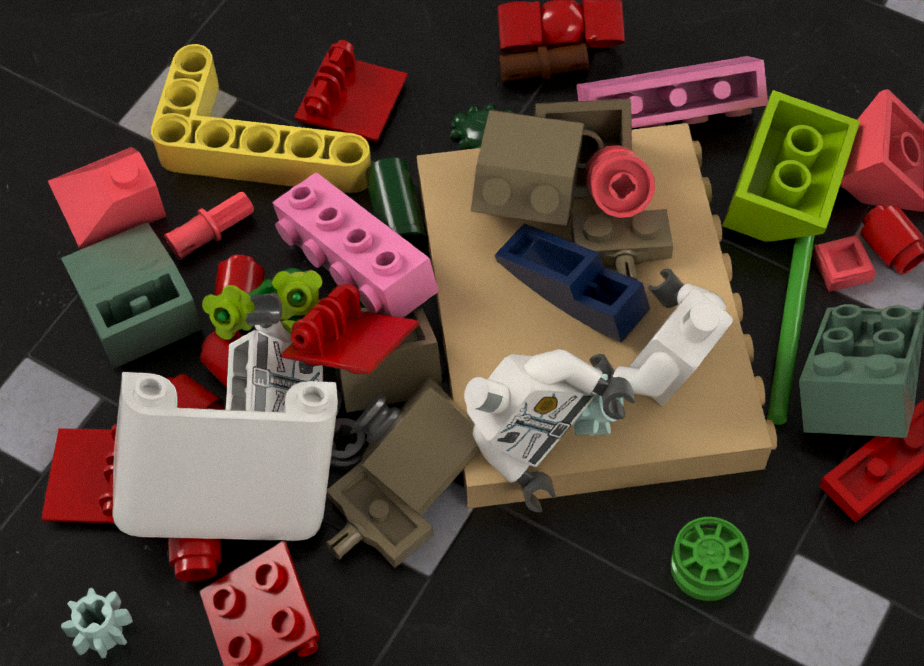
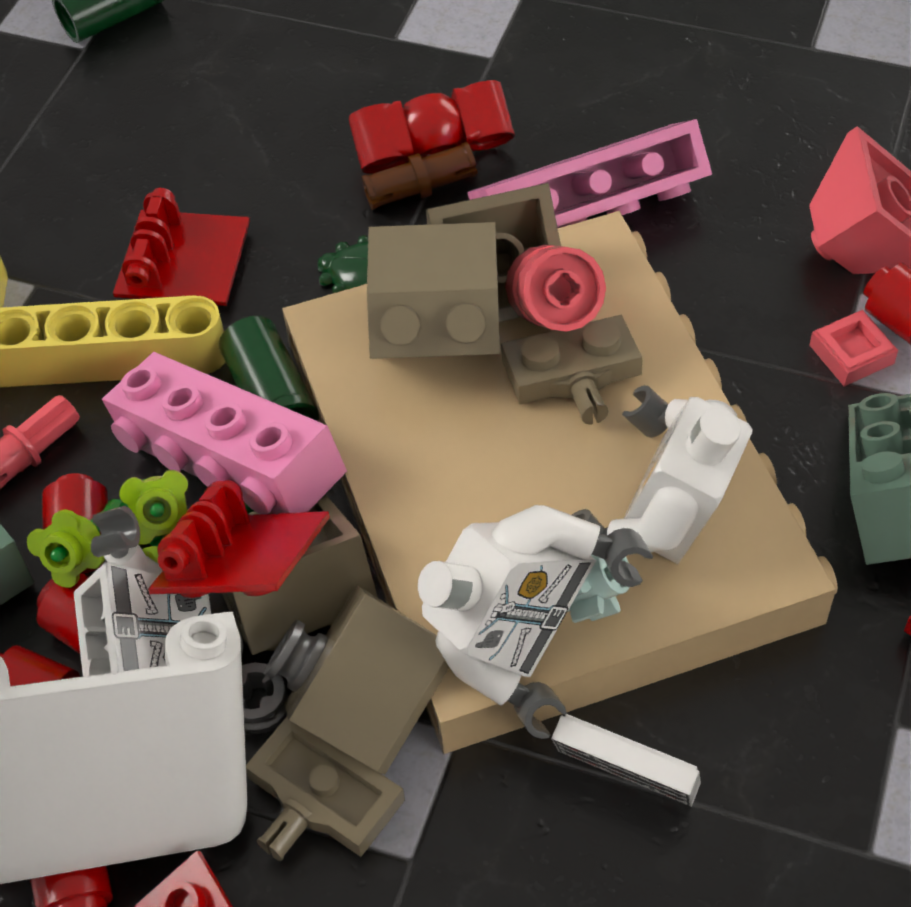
camera: 10 degrees left, 5 degrees down
(575, 281) = (526, 424): dark blue slope -> none
(593, 537) = (627, 759): none -> white tile
(709, 560) = (788, 759): bright green wheel -> none
(790, 330) = (795, 305): bright green bar -> none
(791, 171) = (762, 246): lime slope -> none

